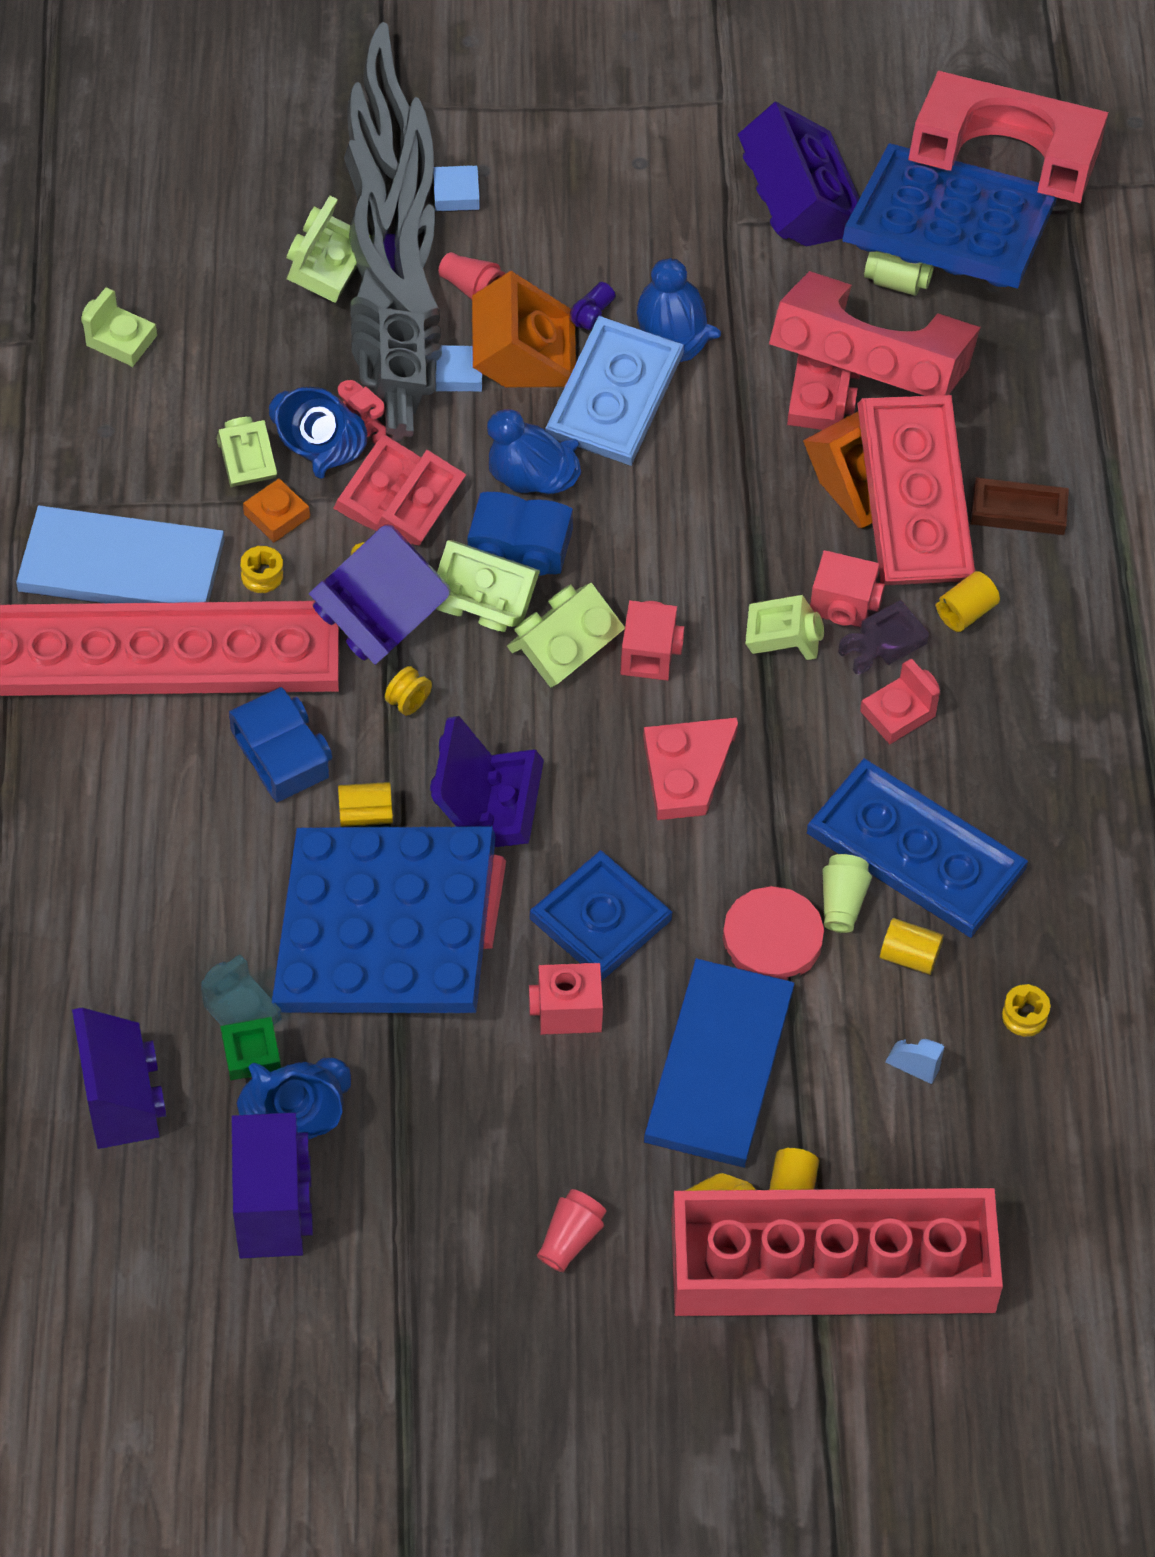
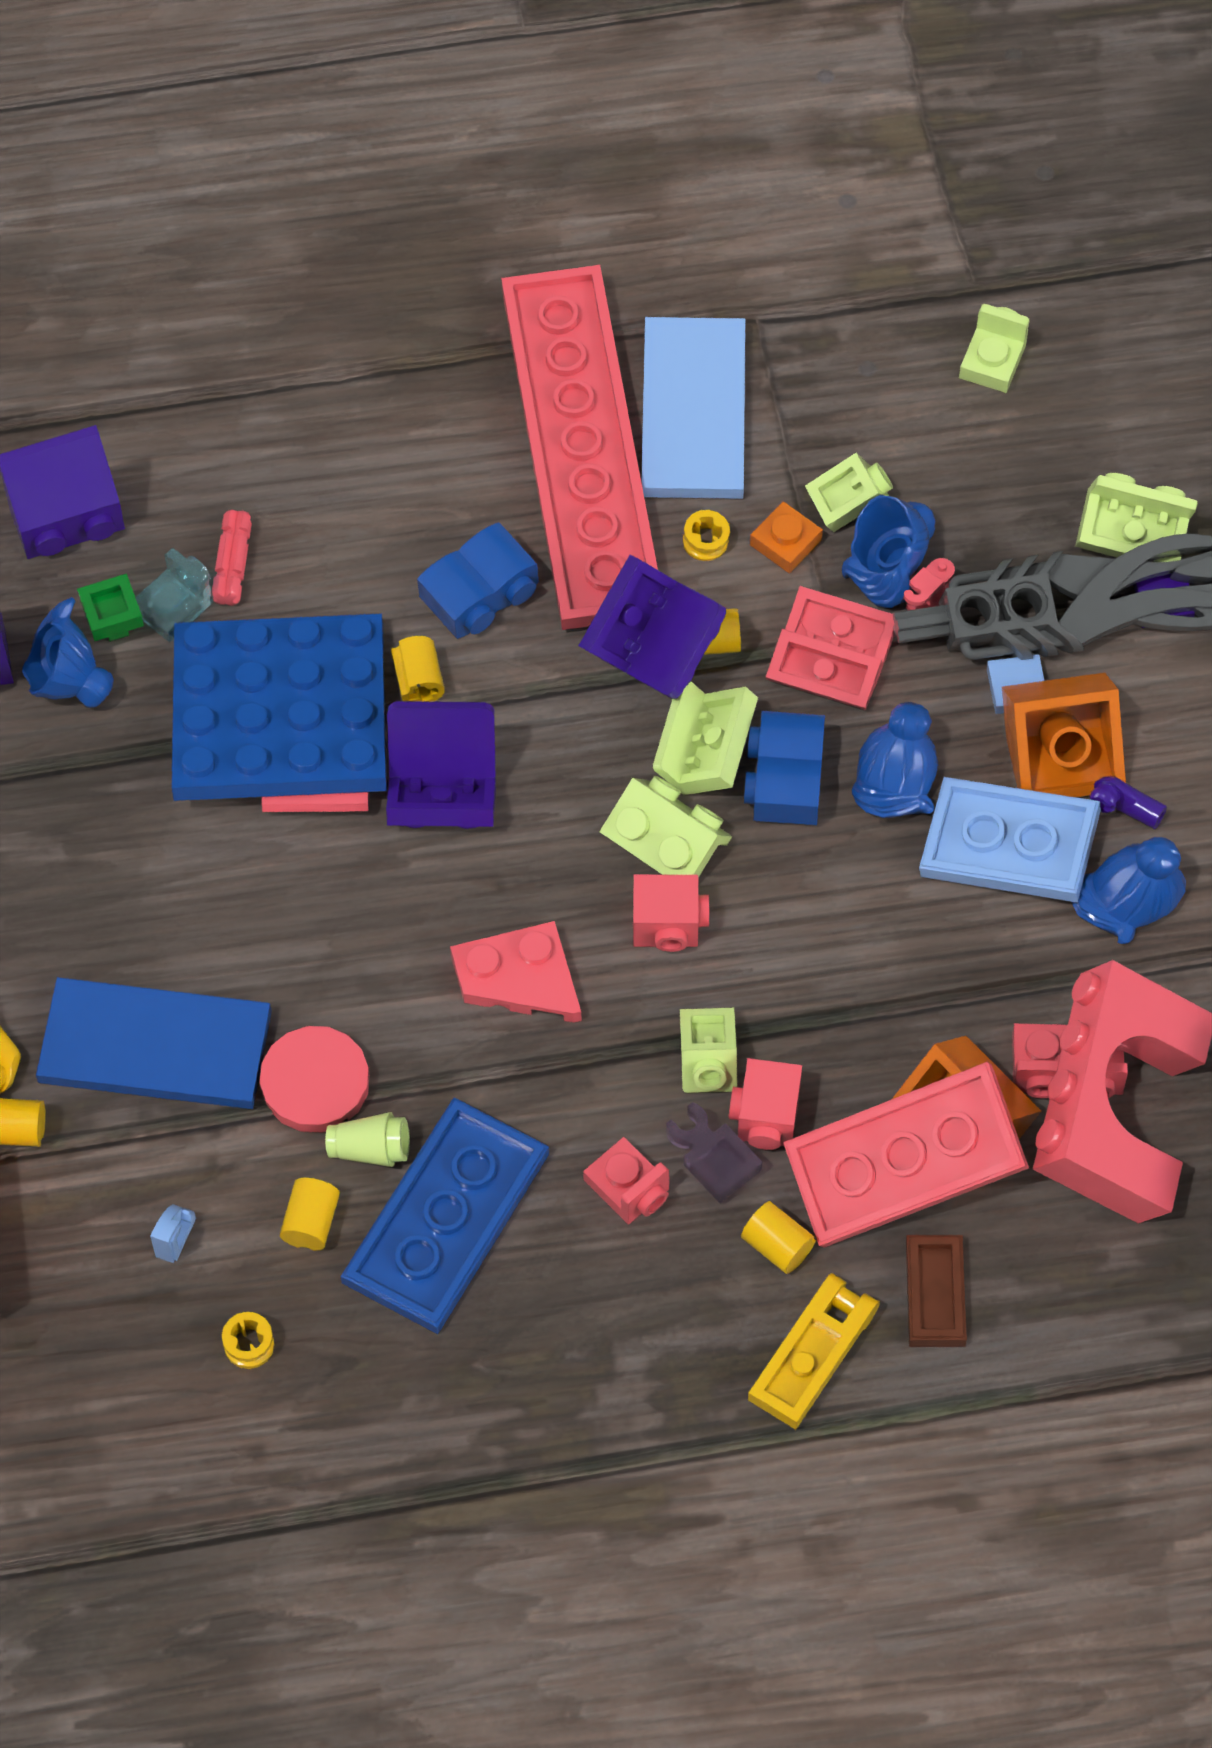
camera: 85 degrees right, 5 degrees up
(199, 948) = (231, 557): none -> coral axle
(408, 690) = (564, 689): yellow bush -> none
(468, 273) = (1143, 676): coral cone -> none
(568, 998) = (204, 886): coral brick -> none
(601, 914) = (319, 911): blue tile -> none
(1071, 591) = (812, 1352): none -> yellow plate

